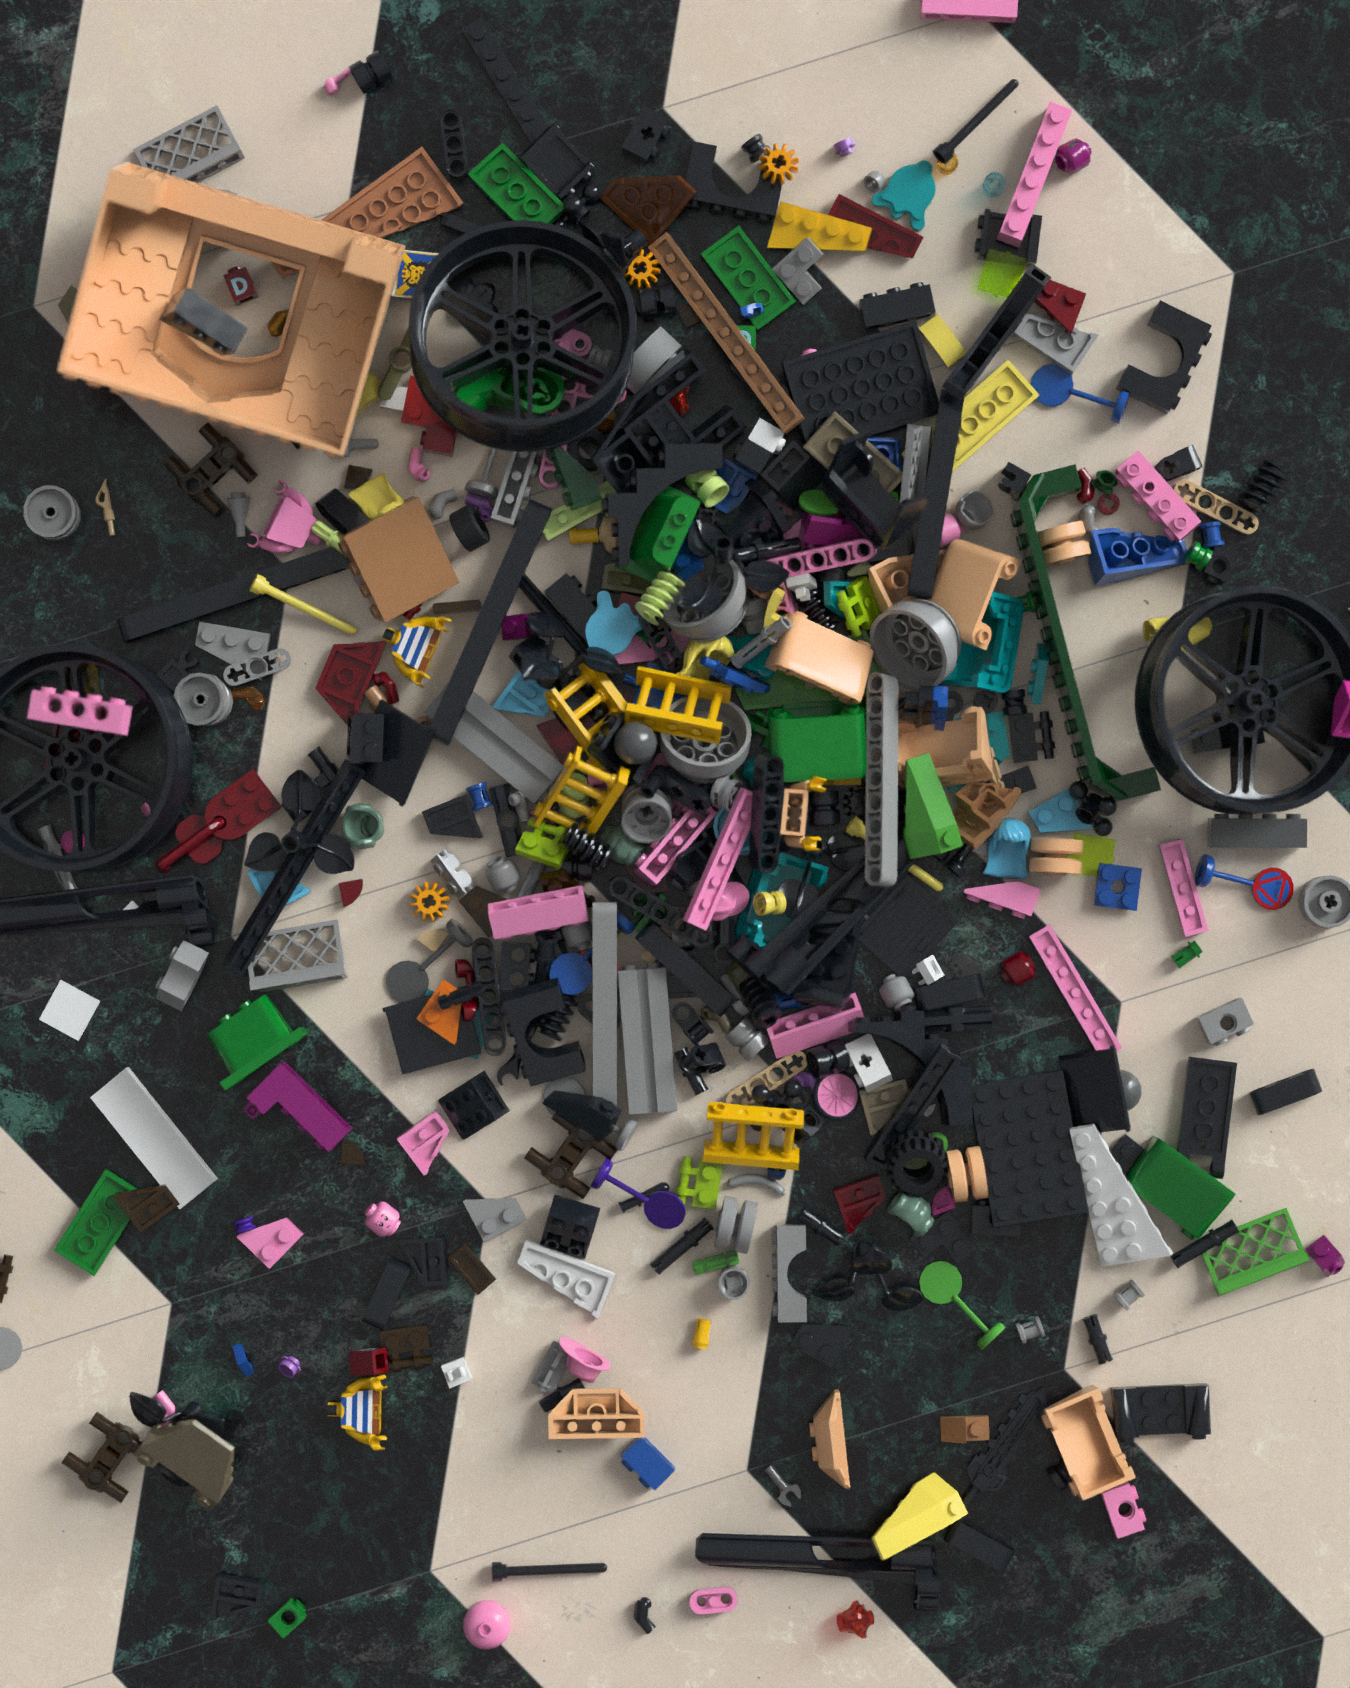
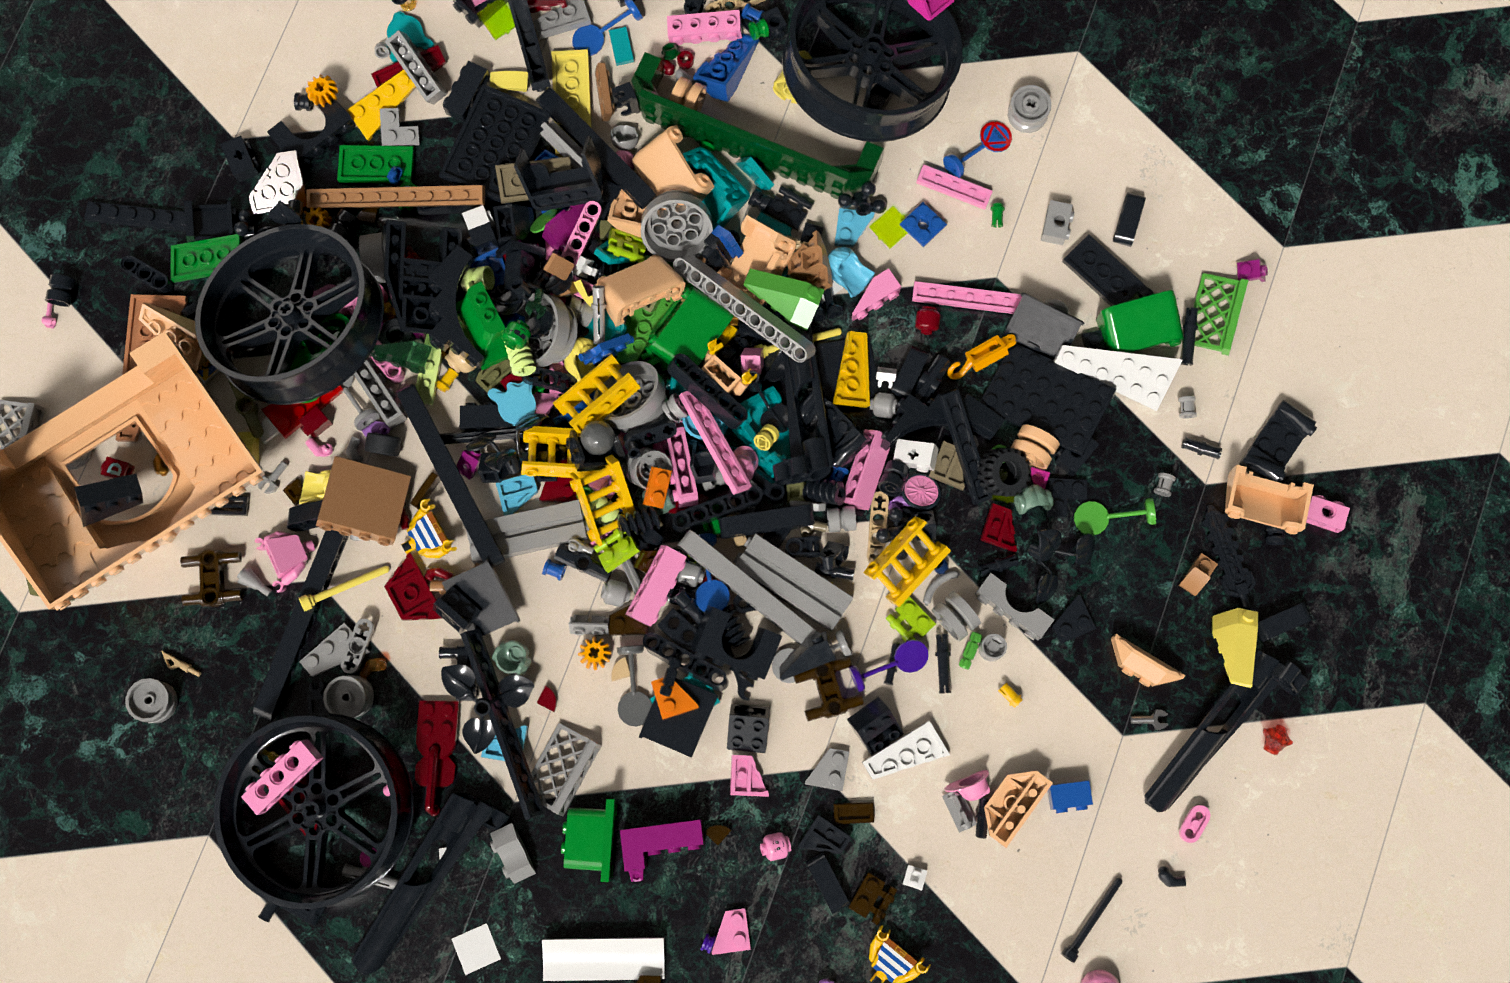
camera: 45 degrees left, 10 degrees down
(327, 534) = (315, 533): yellowish green axle -> none
(368, 1361) = (863, 930): dark red brick -> none
(419, 228) = (178, 328): none -> light nougat wedge
(453, 819) = (555, 597): black wing -> none
(464, 970) = (655, 665): dark red bar -> none
(633, 838) = (657, 487): none -> orange plate
(672, 583) = (516, 334): none -> green head
(711, 573) = (536, 304): none -> clear green bar
(777, 565) = (559, 266): none -> medium nougat slope
(836, 828) = (752, 359): none -> bright pink panel
(844, 147) = (347, 51): medium lavender plate -> none
(879, 239) = (416, 67): none -> light grey brick
(902, 939) = (853, 376): none -> yellow wing
(981, 700) = (745, 211): black wheel -> none
(1006, 449) = (604, 92): none -> medium nougat plate
(1022, 1051) = (983, 355): none -> light orange piece
(1056, 855) = (875, 243): light nougat wheel -> none
(1071, 425) = (621, 46): none -> teal tile
(1257, 832) = (954, 118): dark grey brick -> none

